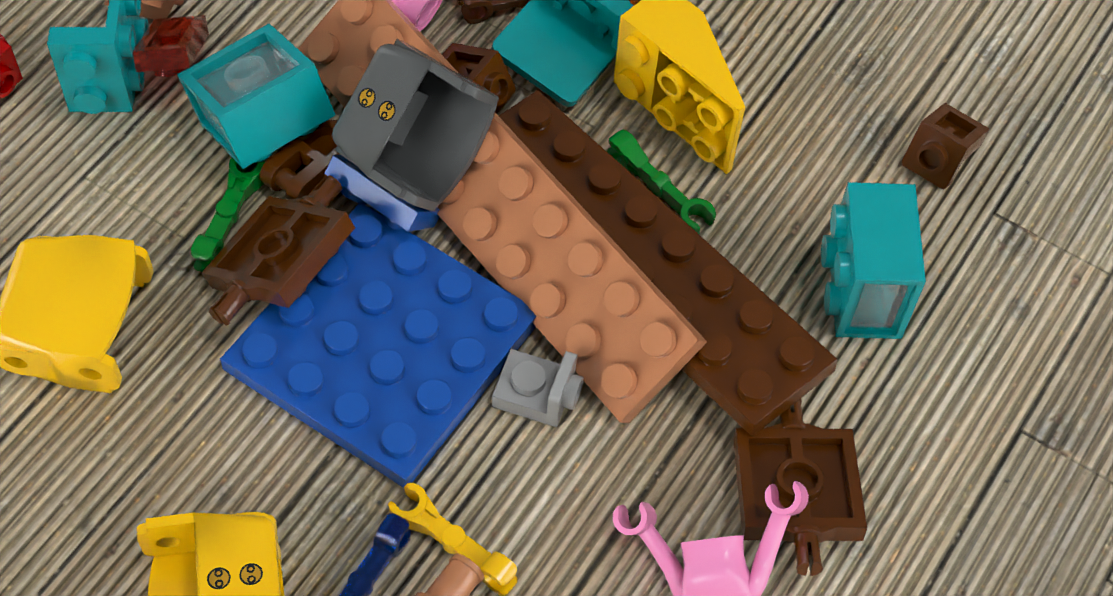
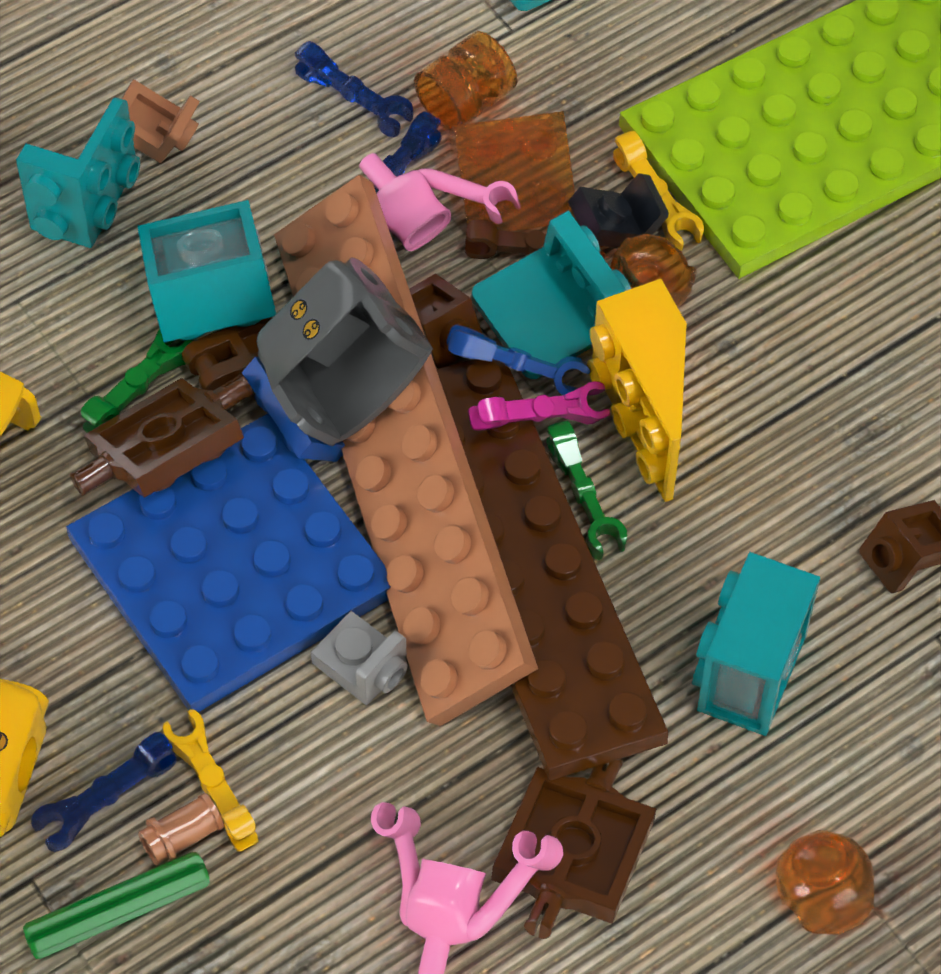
camera: 25 degrees right, 0 degrees up
(170, 45) = (149, 191): clear red plate -> none
(520, 90) = (474, 345): none -> blue piece
(618, 117) = (573, 406): none -> dark pink piece
(1014, 441) = (826, 882): none -> clear orange hair

